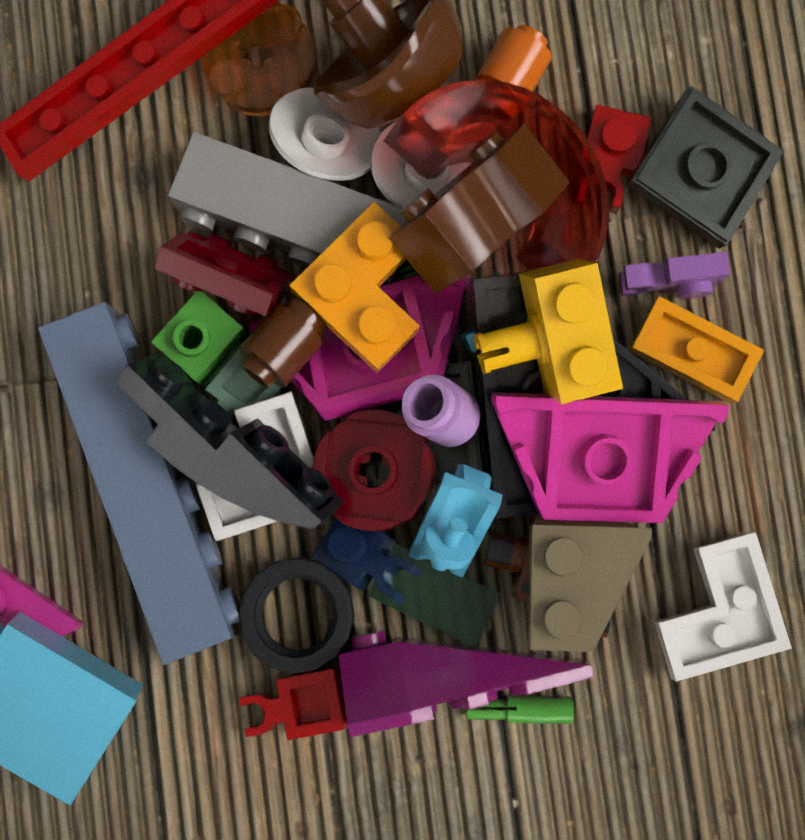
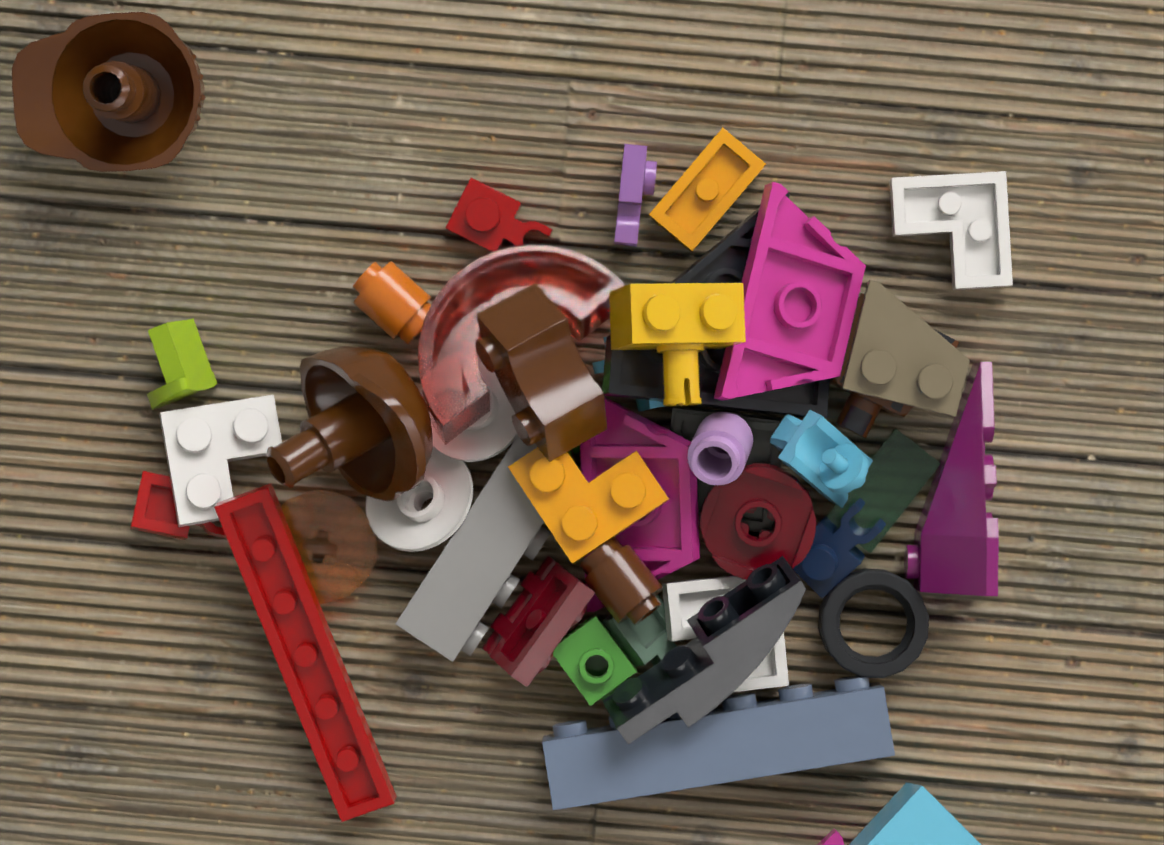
camera: 80 degrees left, 5 degrees up
(306, 705) = (958, 631): red plate -> none
(527, 710) = (1008, 426): bright green piece -> none
(705, 167) = (531, 138): pearl dark grey plate -> none

